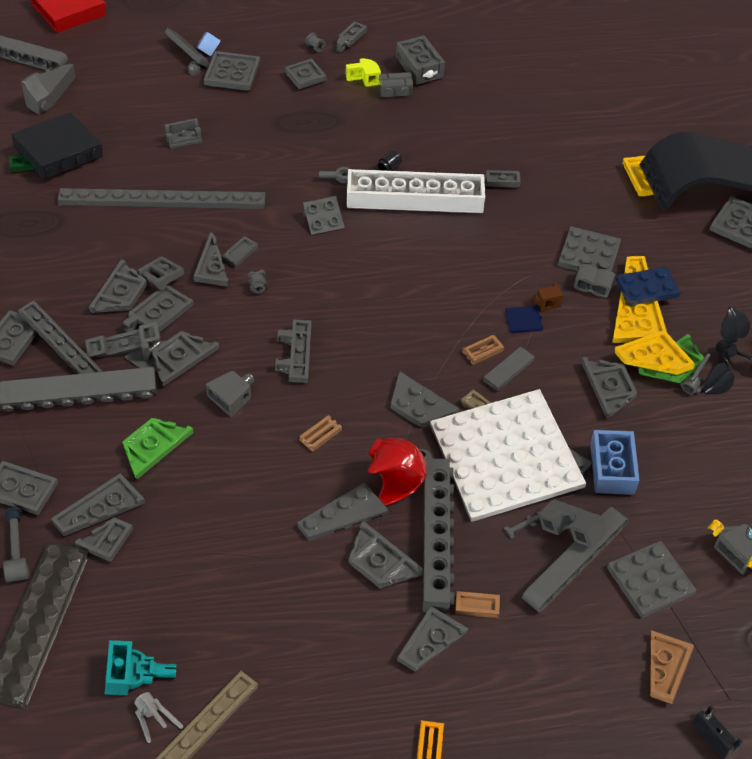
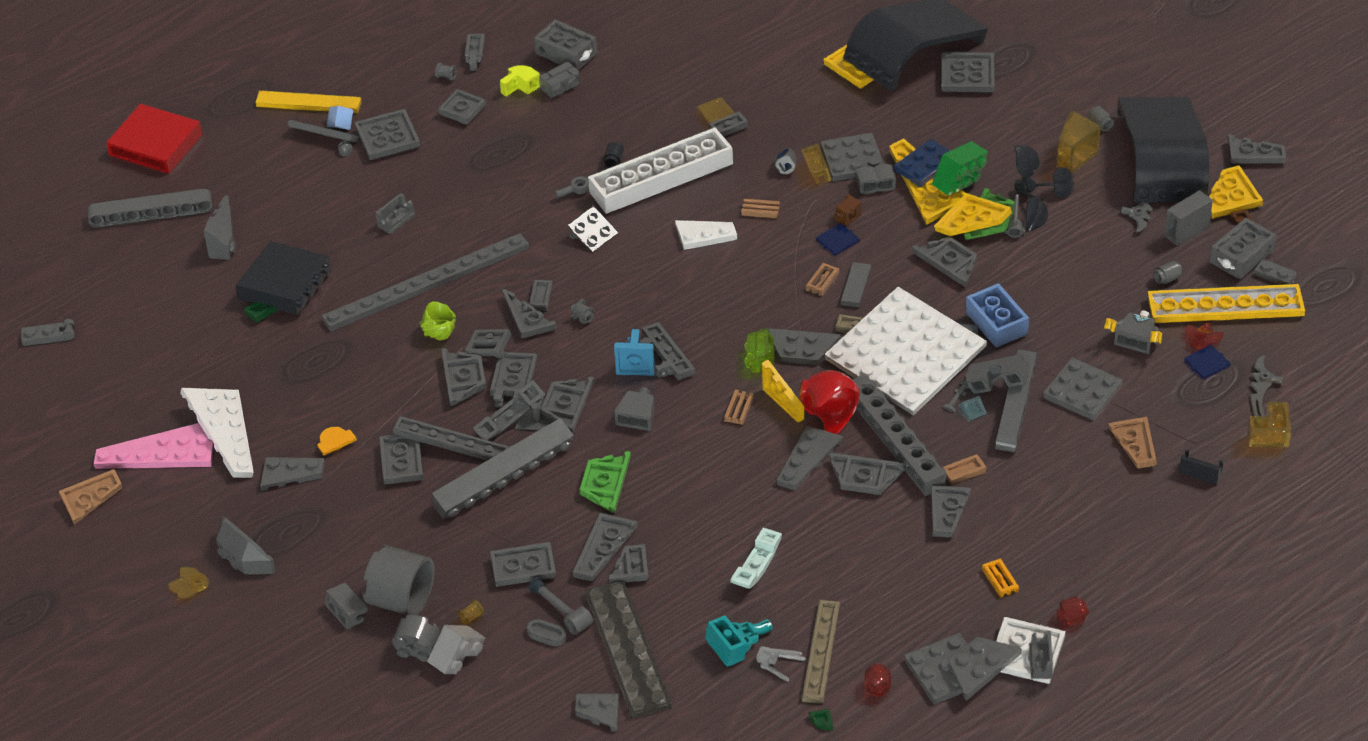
camera: 25 degrees left, 5 degrees down
(136, 234) = (438, 321): none -> lime hair
(198, 22) = (306, 101): none -> yellow tile
(216, 598) = (758, 560): none -> light aqua slope
(262, 341) = (634, 357): none -> dark azure bracket
(364, 442) = (780, 392): none -> yellow wing
(375, 389) = (759, 349): none -> clear neon green brick
(414, 261) = (704, 233): none -> white wing
(479, 259) = (760, 208): none -> medium nougat tile
(501, 161) = (715, 110): none -> clear yellow piece
(527, 230) = (786, 161): none -> dark grey rock
(530, 544) = (973, 408): none -> clear light blue slope
(552, 243) = (816, 162): none -> clear yellow hinge
(671, 304) = (960, 168): none -> green brick

